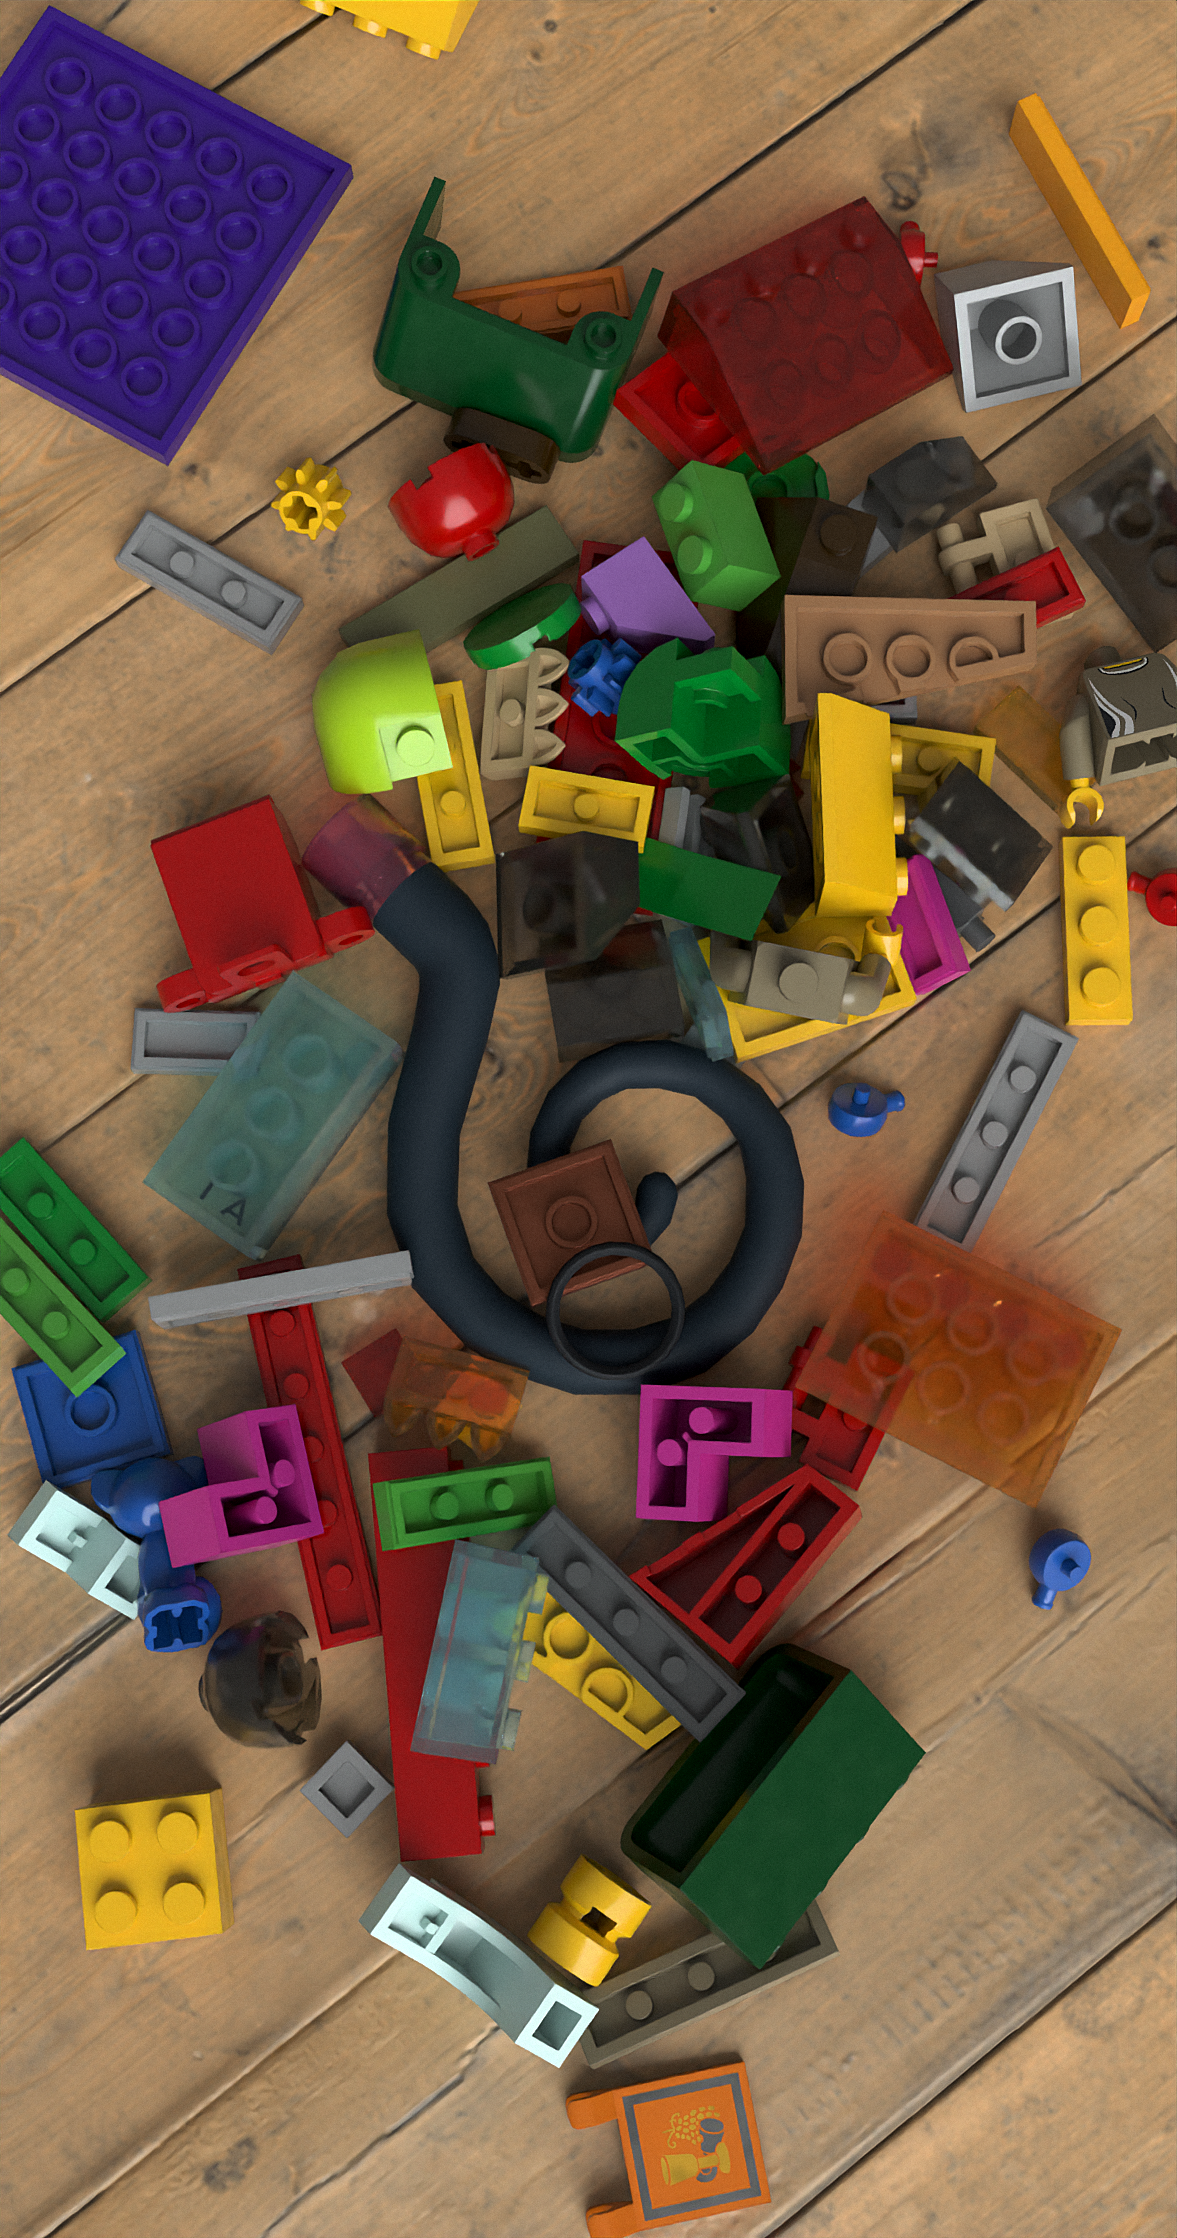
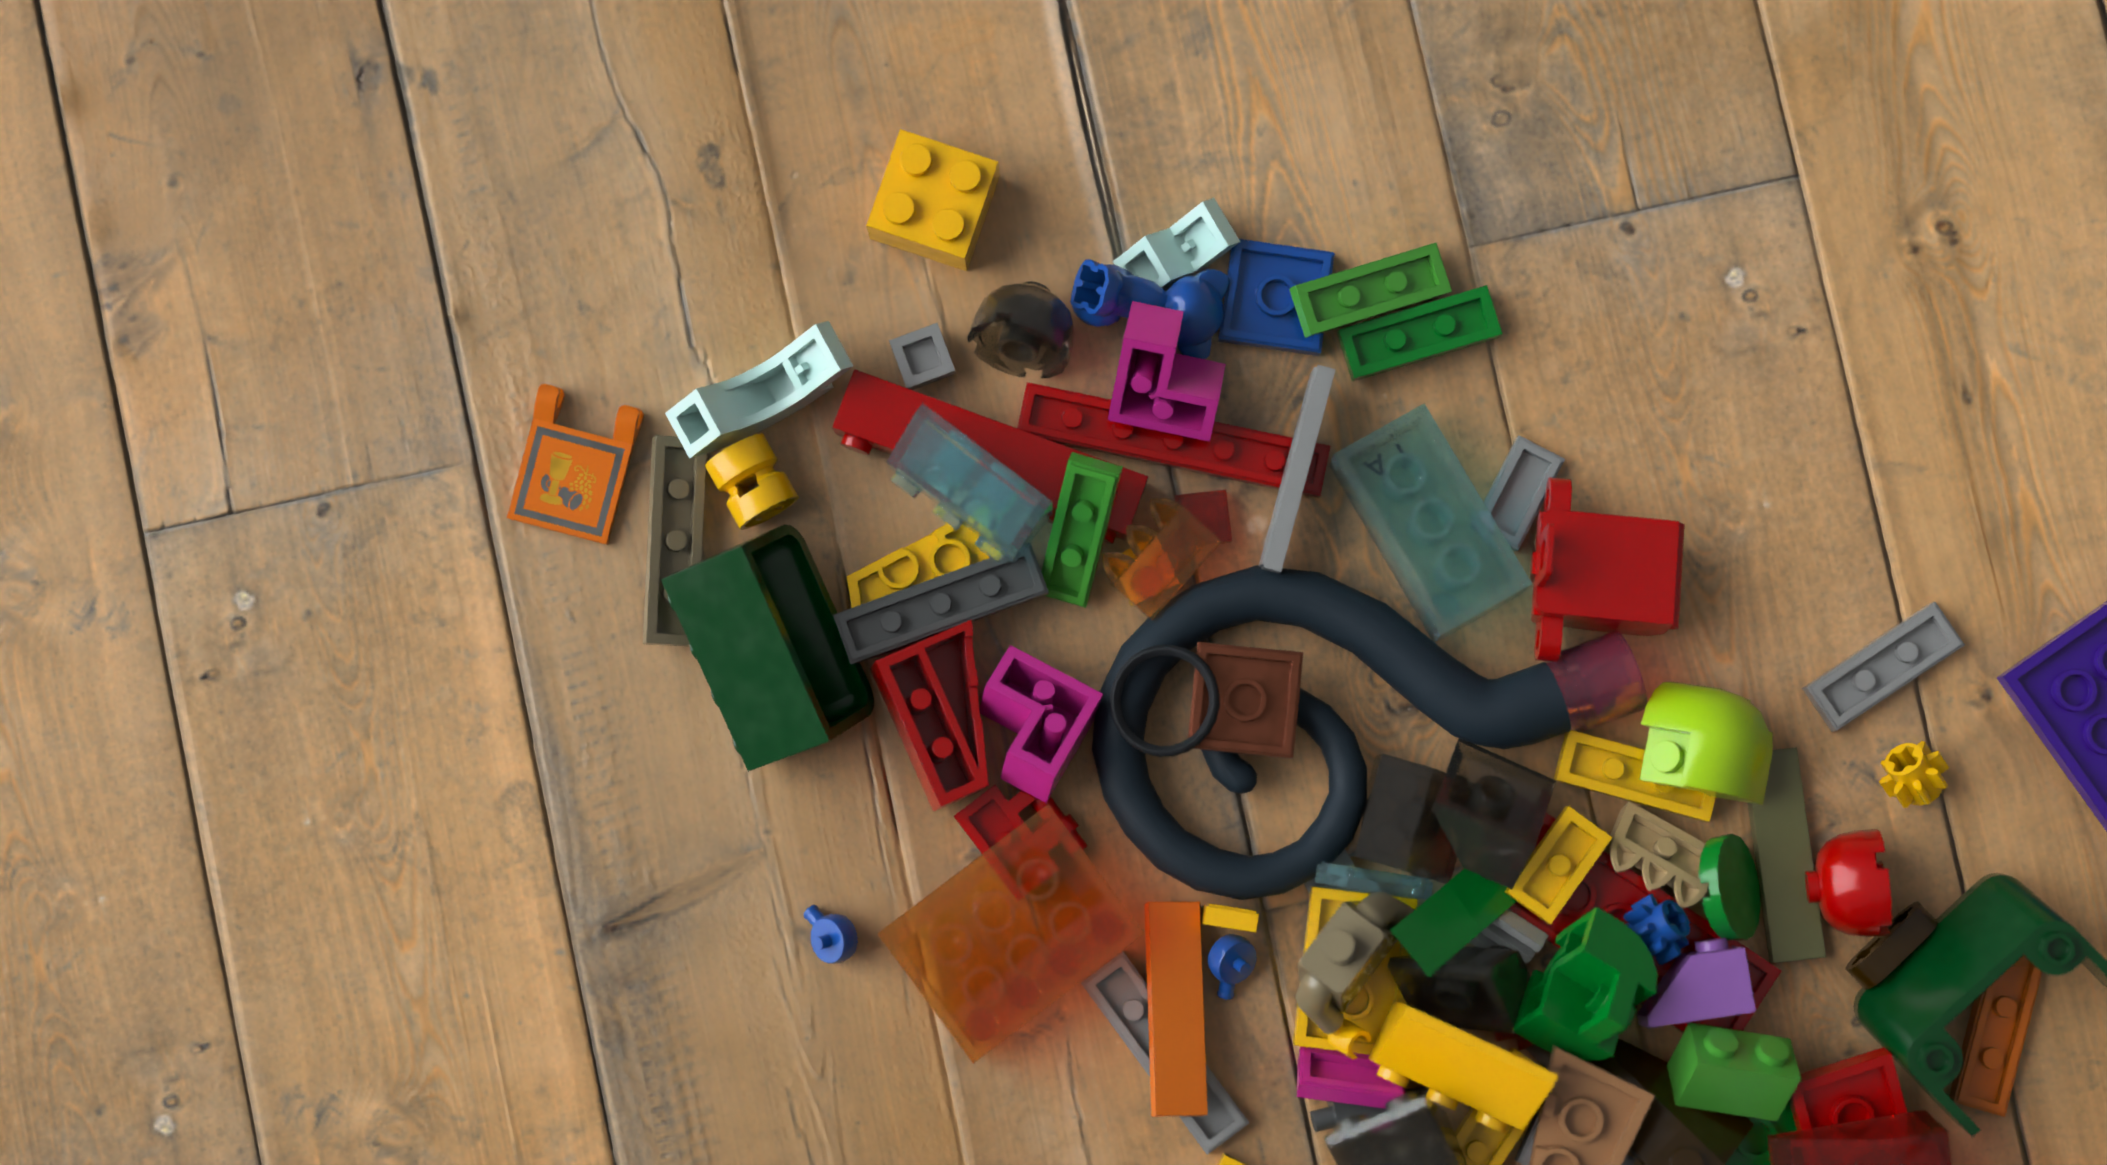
camera: 115 degrees right, 5 degrees up
(815, 1132) = (1230, 917): none -> yellow tile
(943, 1143) = (1175, 1009): none -> orange tile

